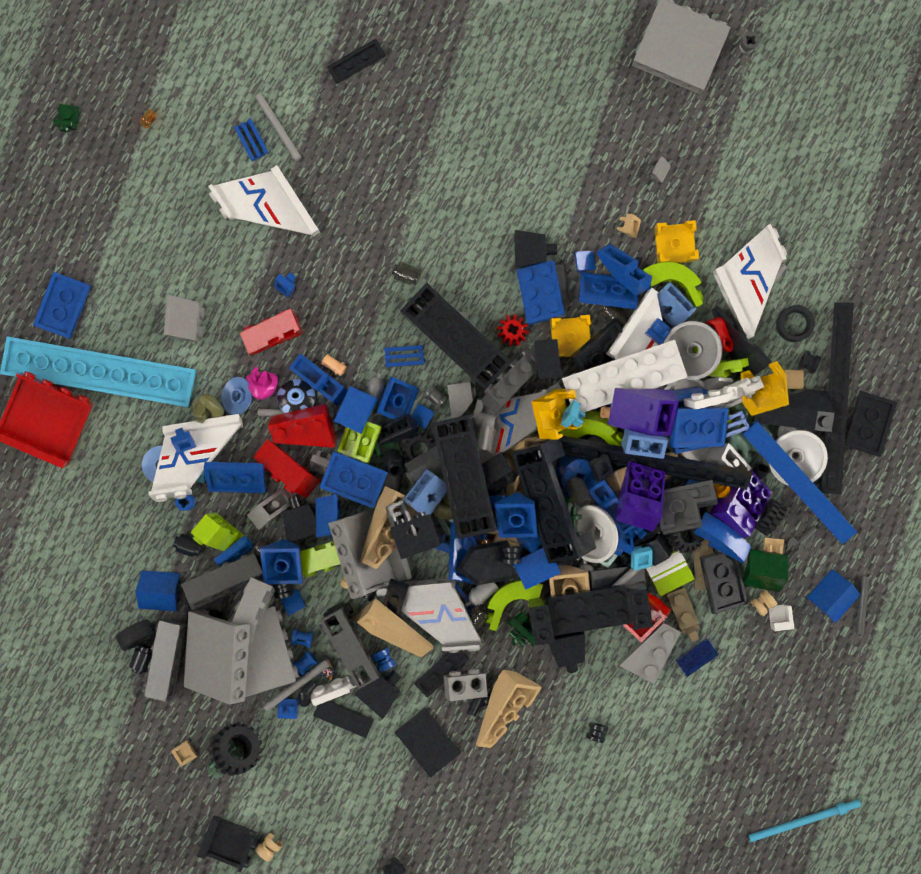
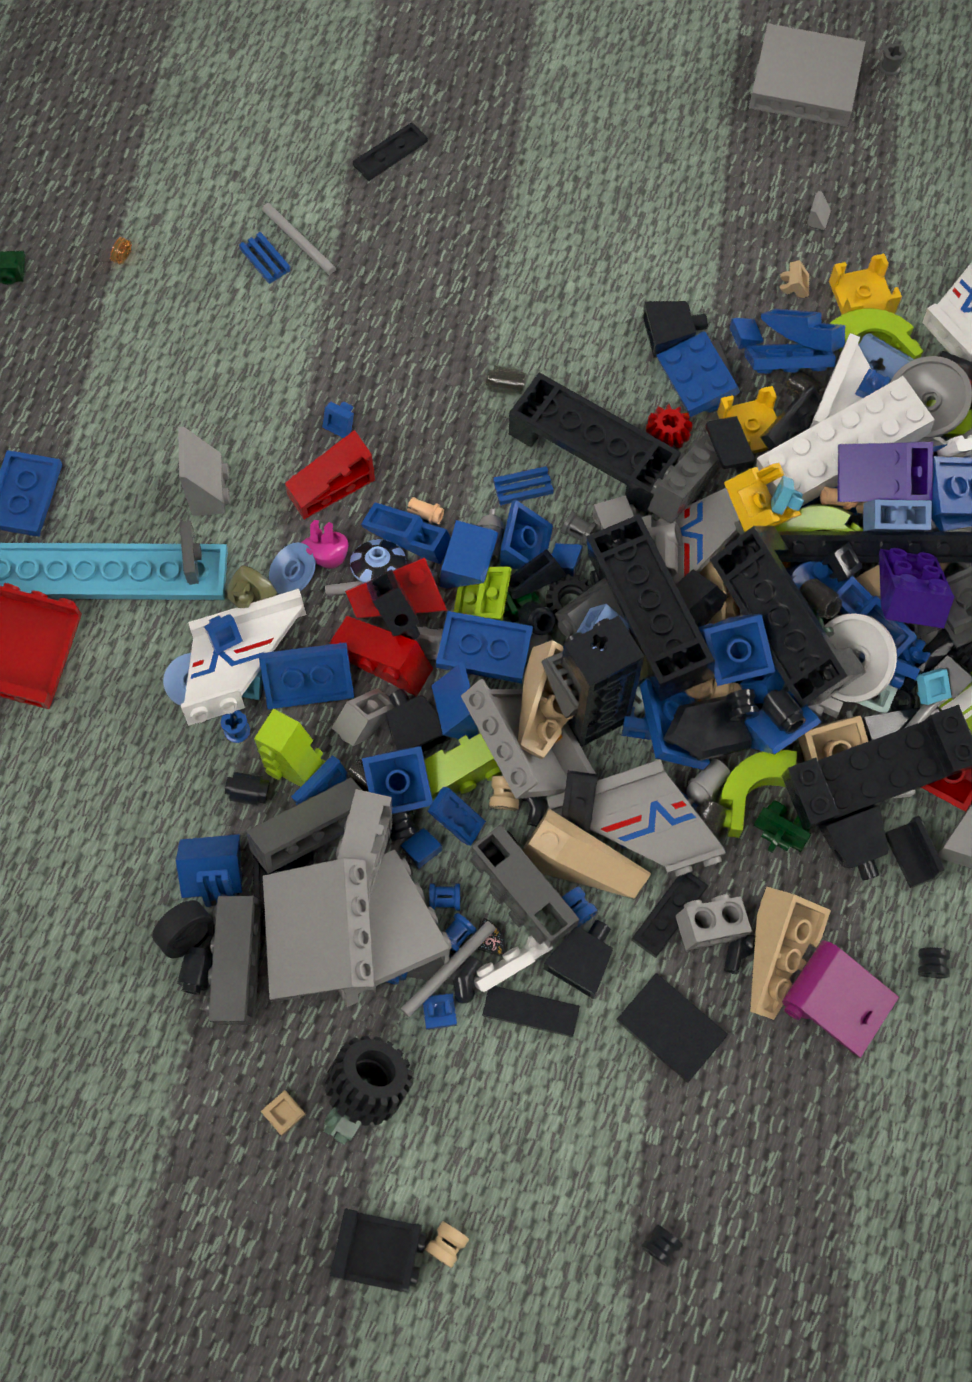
camera: 10 degrees left, 20 degrees down
(158, 612) = (201, 877): none -> blue tile
(169, 376) = (190, 552): none -> dark grey plate
(264, 201) = (295, 321): white piece -> none
(296, 445) = (394, 605): none -> black torso
(317, 589) = (456, 816): none -> blue plate
(533, 743) = (838, 997): none -> magenta door
(536, 564) = (783, 711): none -> black brick
(602, 660) = (915, 852): none -> black panel

